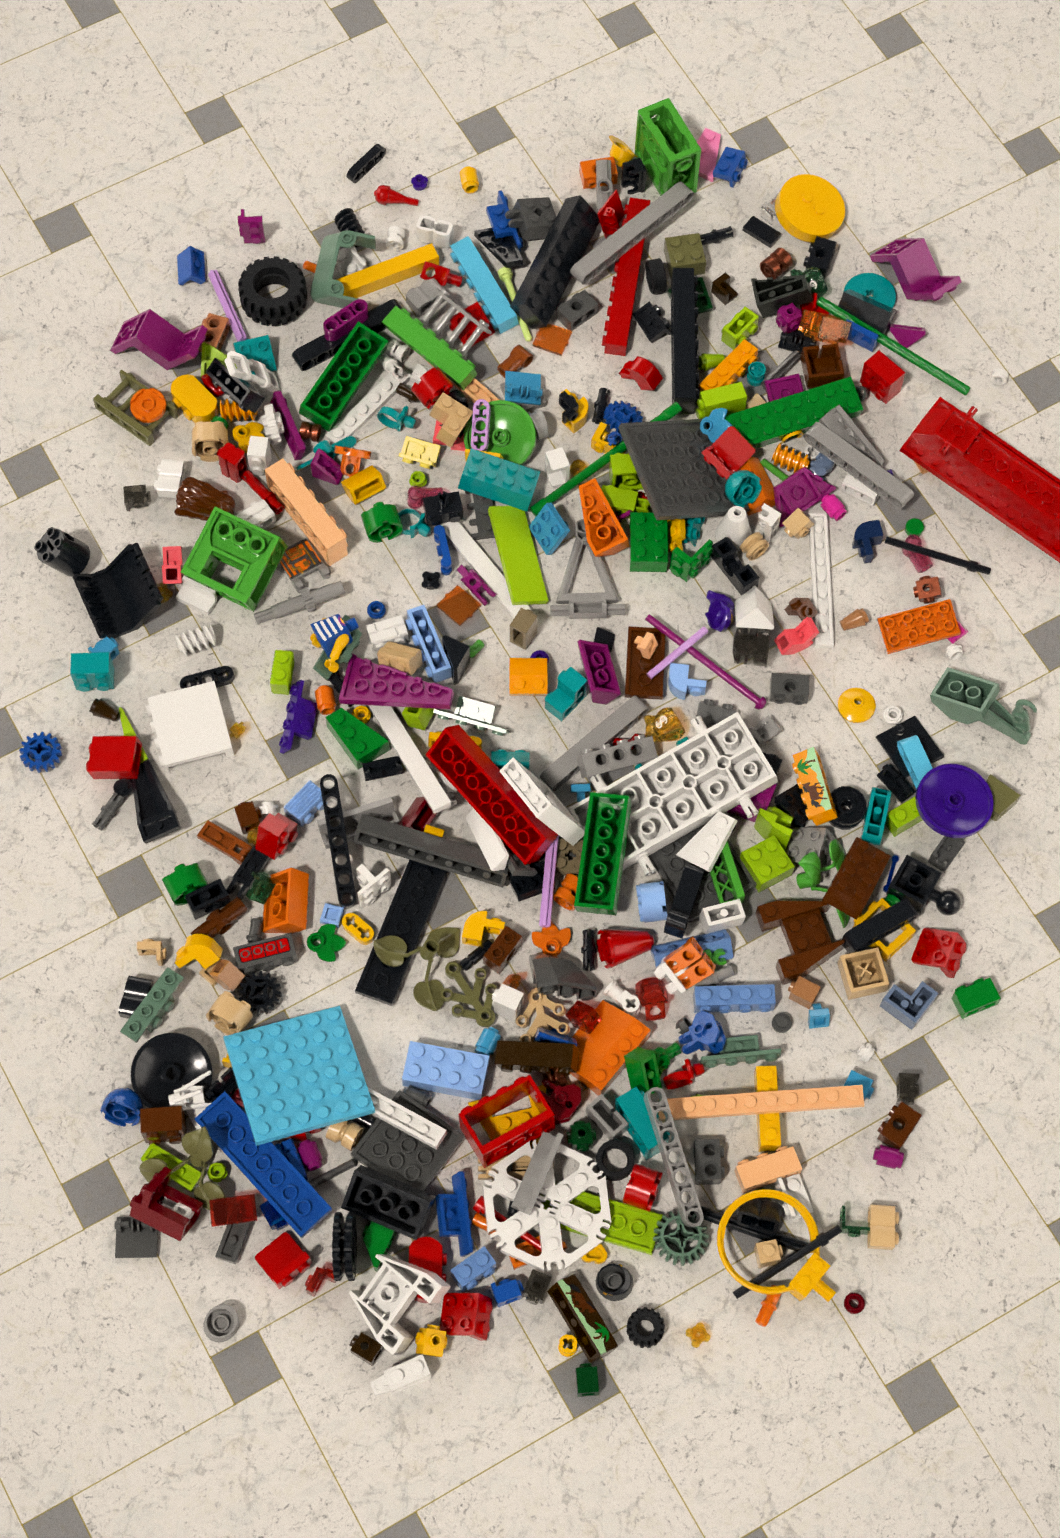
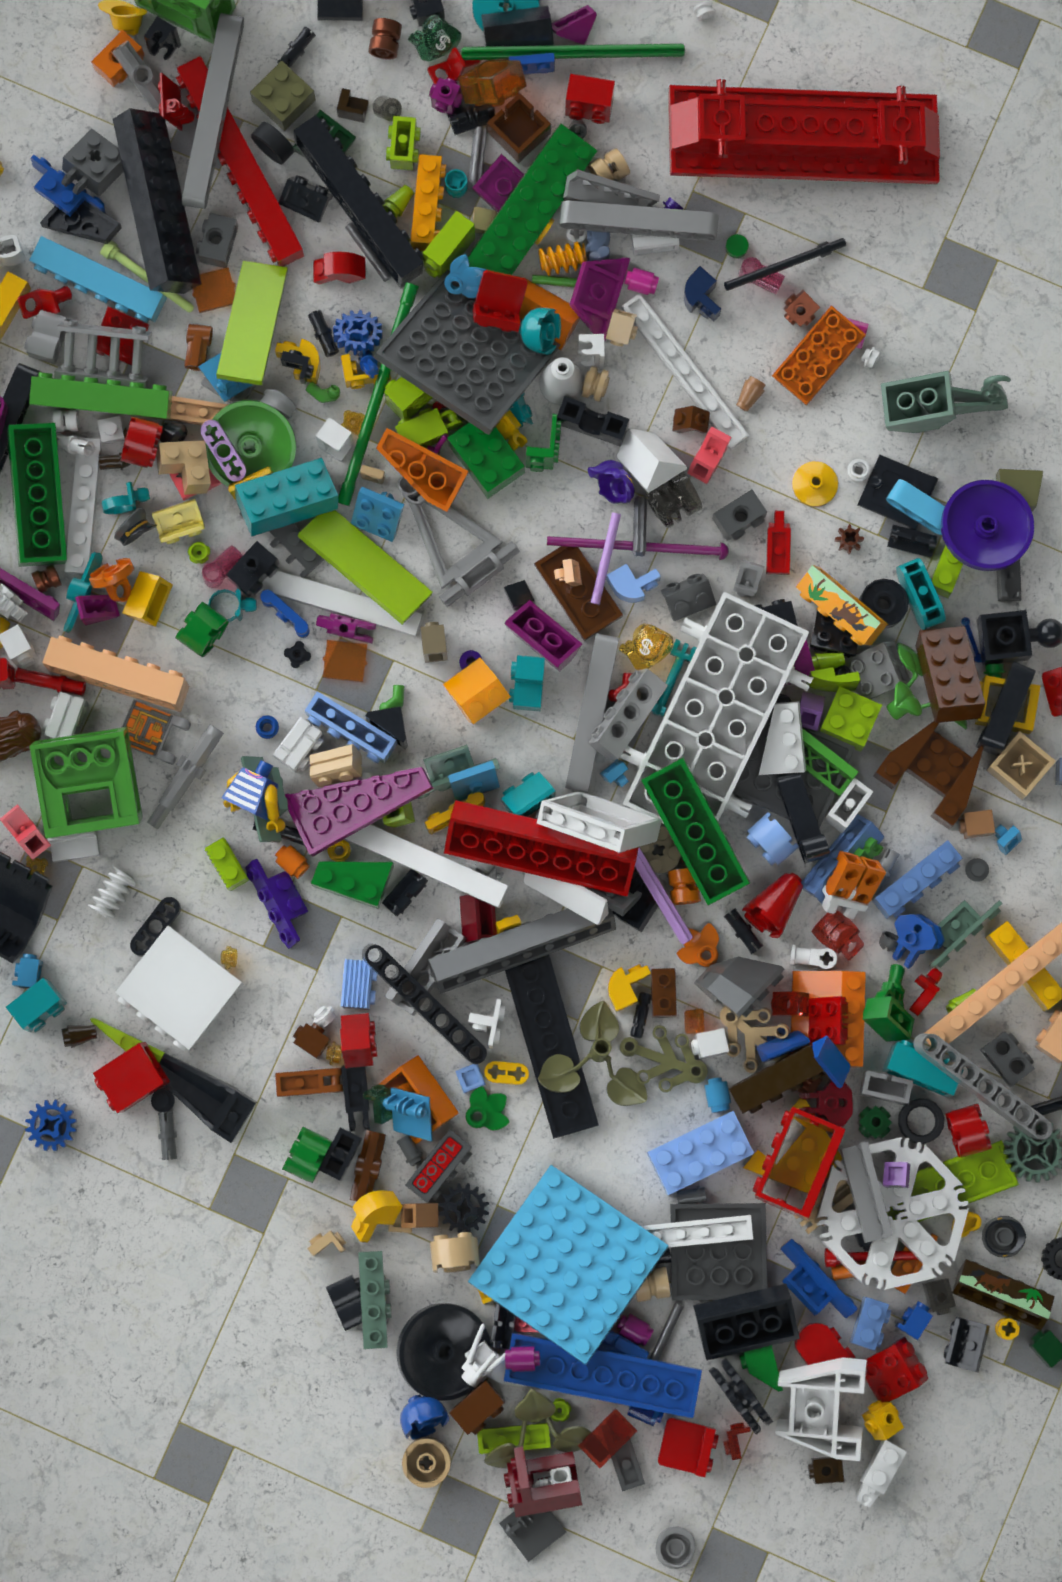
camera: 35 degrees left, 15 degrees up
(101, 1126) = (437, 1470): none -> tan brick
(217, 1109) = (522, 1359): none -> magenta brick
(273, 903) = (410, 1113): none -> dark azure hinge
(388, 436) = (133, 527): none -> piece
(484, 727) = (473, 780): none -> dark azure plate
(530, 1334) = (966, 1344): none -> black bracket
(559, 367) = (252, 323): none -> lime tile
(565, 506) = (372, 474): none -> tan tile
(568, 1177) = (896, 1175): none -> medium lavender plate
(576, 443) = (323, 395): none -> bright green arm
(581, 1066) = (831, 1060): none -> blue slope
(596, 1043) = (826, 1019): none -> red hinge
(667, 378) = (368, 252): none -> flat silver bar
(716, 649) = (639, 527): none -> flat silver axle
(742, 298) = (386, 107): none -> clear smoke brick
(742, 838) = (811, 710): none -> medium lavender brick
(775, 293) = (415, 75): pearl dark grey wedge -> none
(801, 724) = (778, 546): none -> red hinge
(853, 747) = (851, 544): none -> copper gear
(870, 422) = (617, 162): none -> tan wheel

